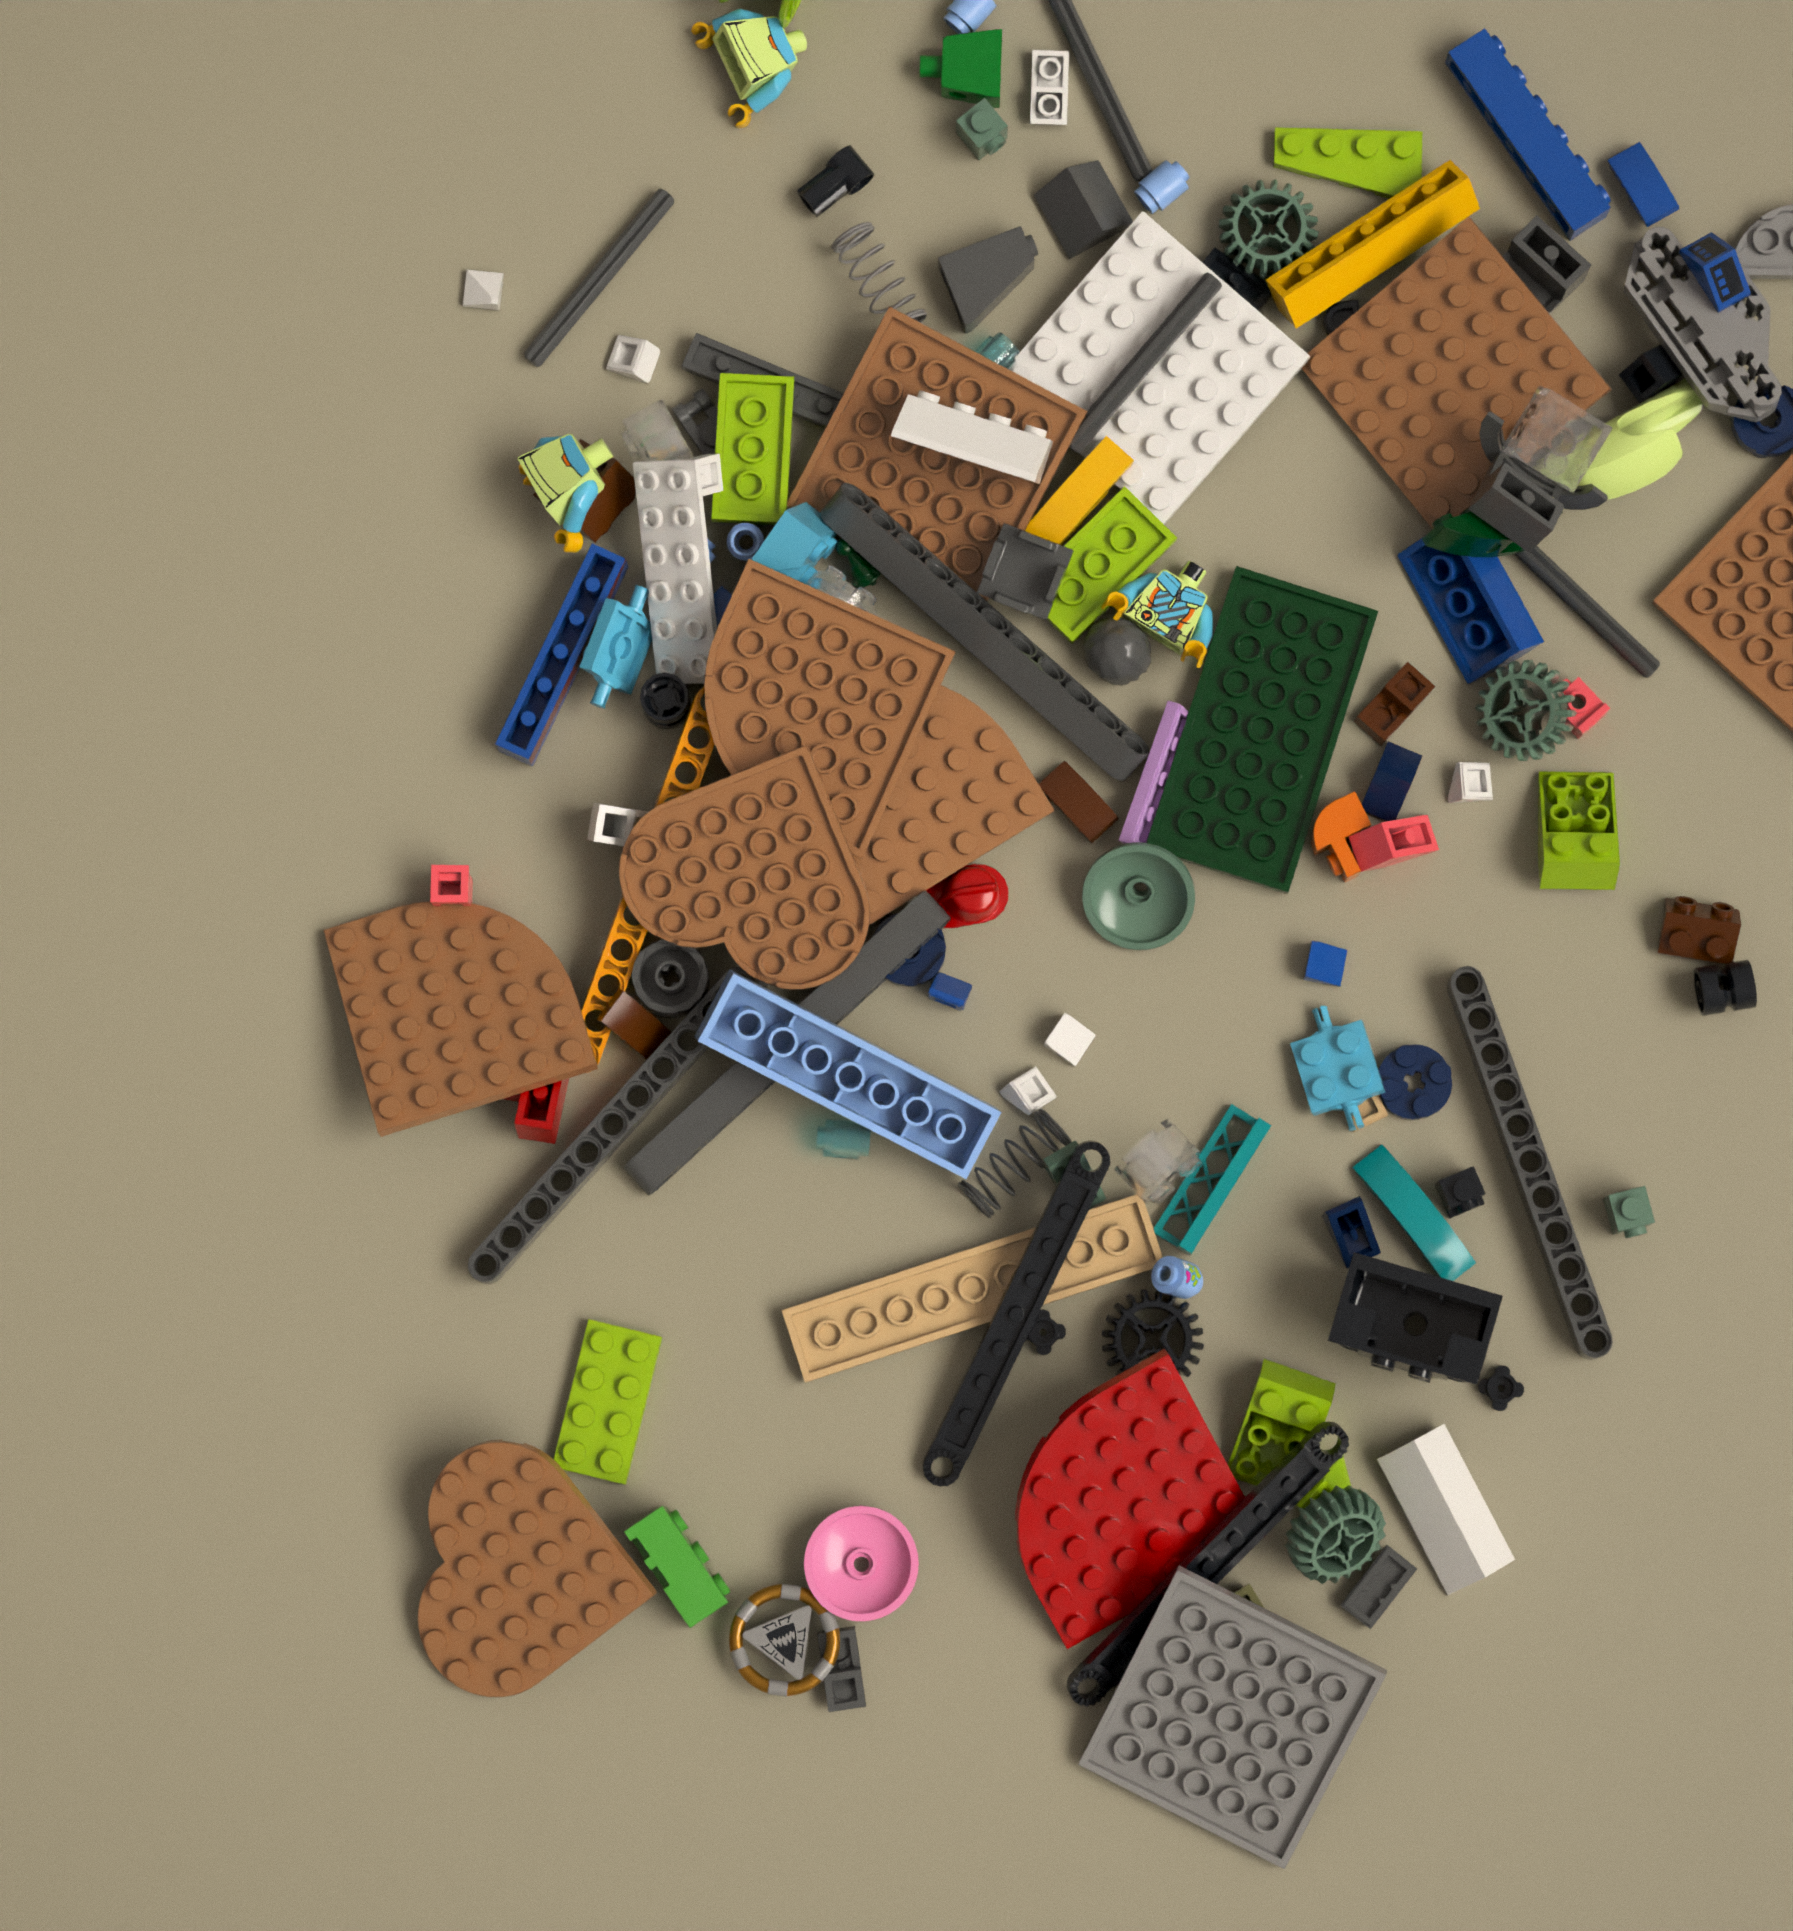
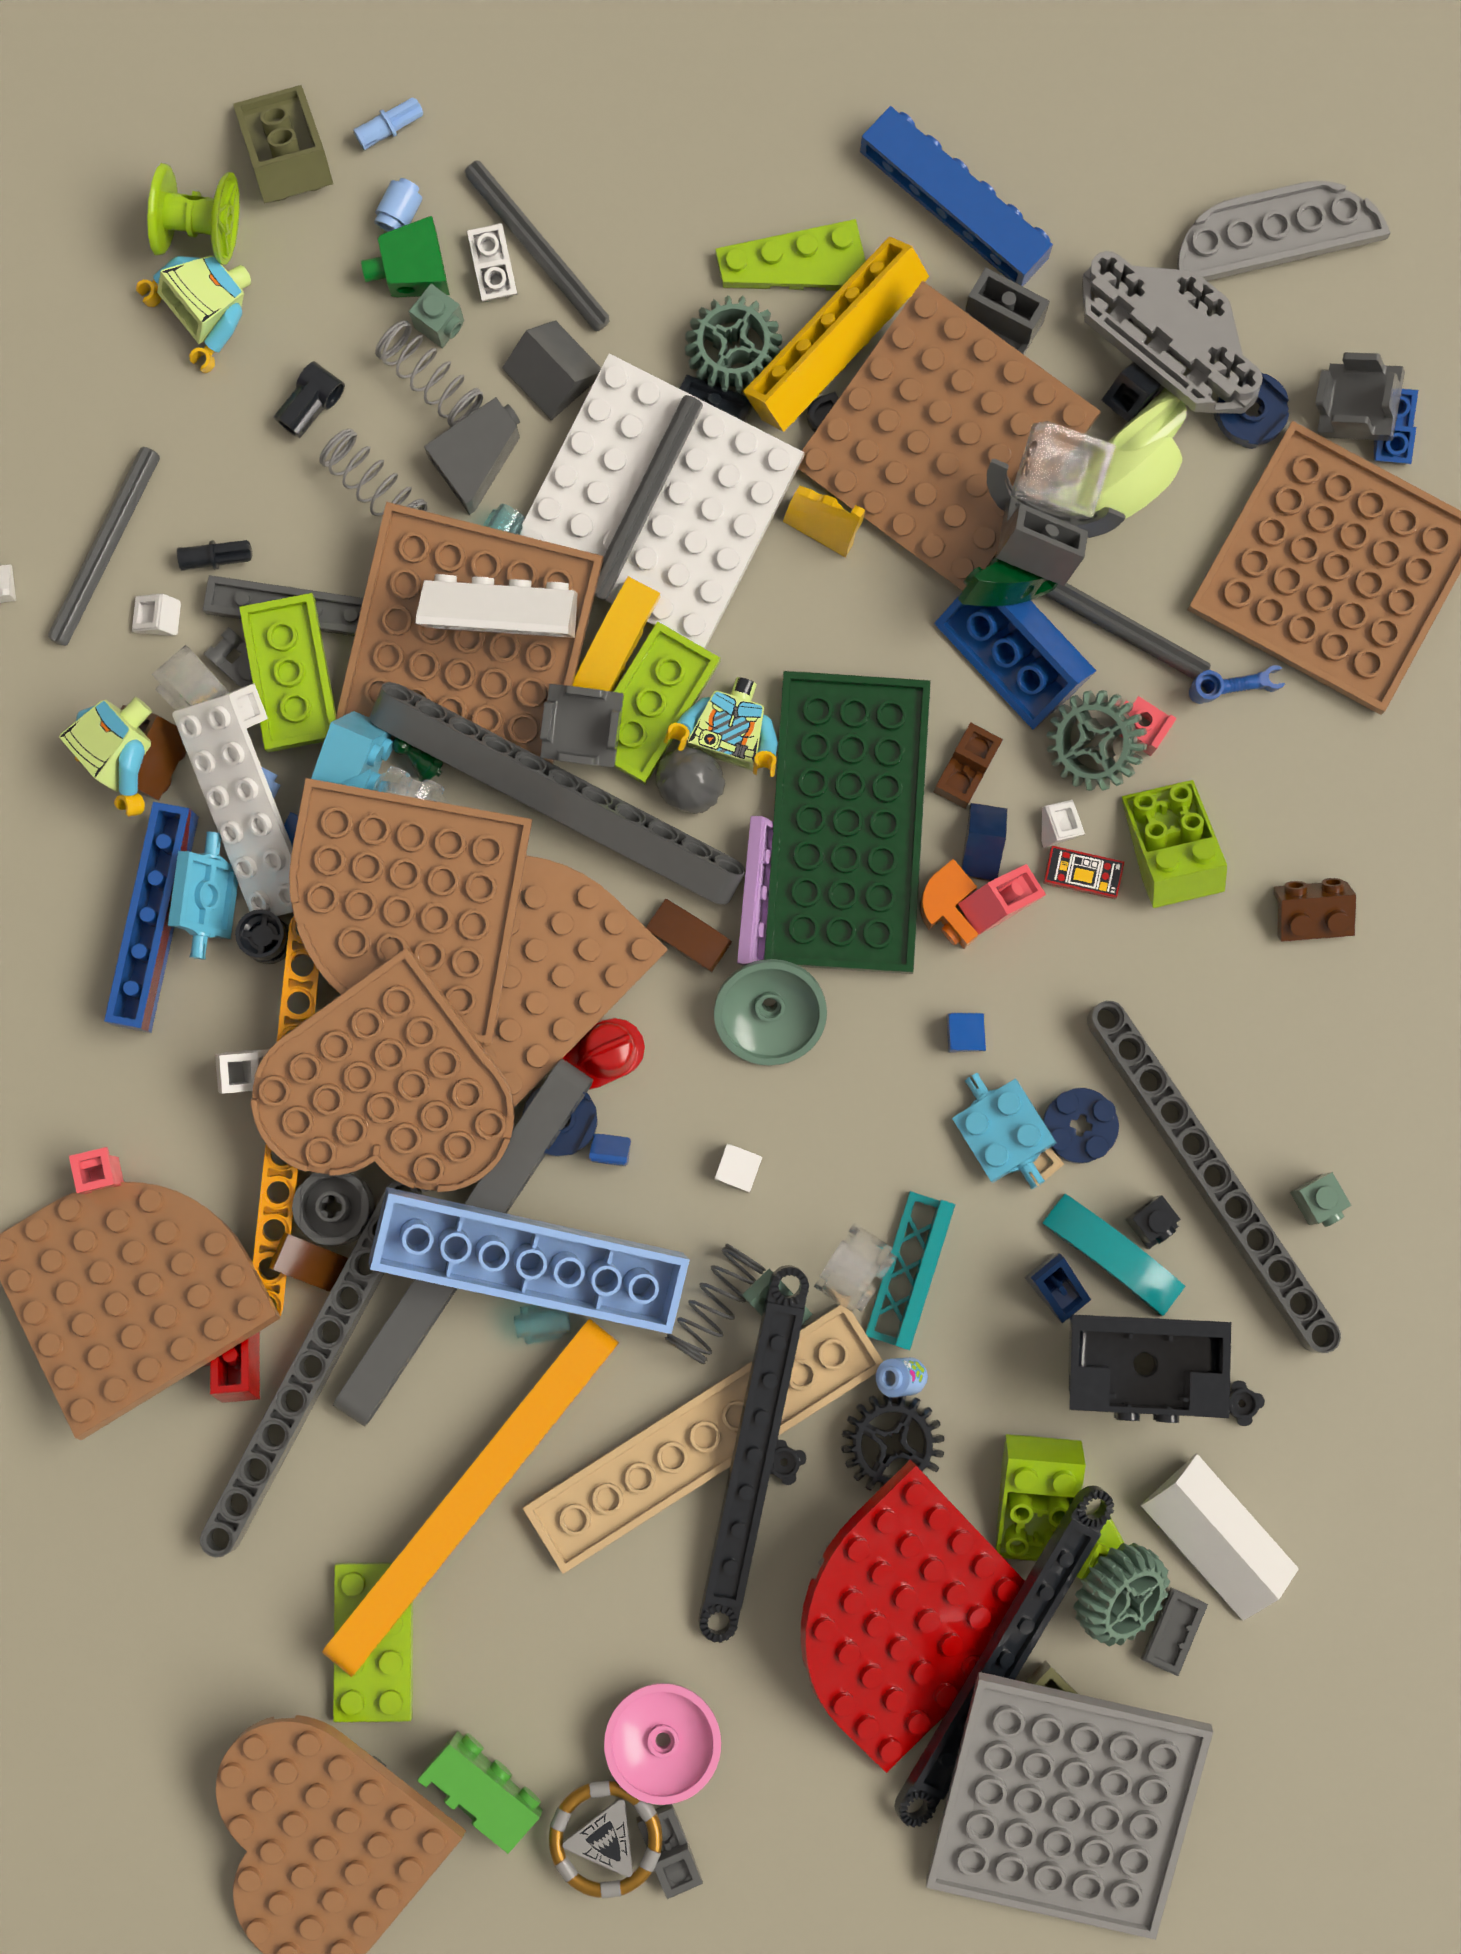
camera: 20 degrees left, 0 degrees up
(705, 313) = (214, 554): none -> black axle
(735, 535) = (293, 760): light blue brick -> none
(736, 1286) = (469, 1498): none -> light orange beam
(930, 149) = (460, 405): none -> light grey piece
(1028, 1091) = (711, 1229): white slope -> none
(1162, 186) = (622, 329): light blue brick -> none
(1313, 426) = (824, 519): none -> yellow slope
(1481, 836) = (1083, 872): none -> tile
(1643, 184) = (1077, 217): blue slope -> none
(1660, 686) = (1216, 685): none -> blue brick
(1716, 270) = (1170, 276): blue slope -> none
(1738, 987) = (1360, 957): black wheel -> none

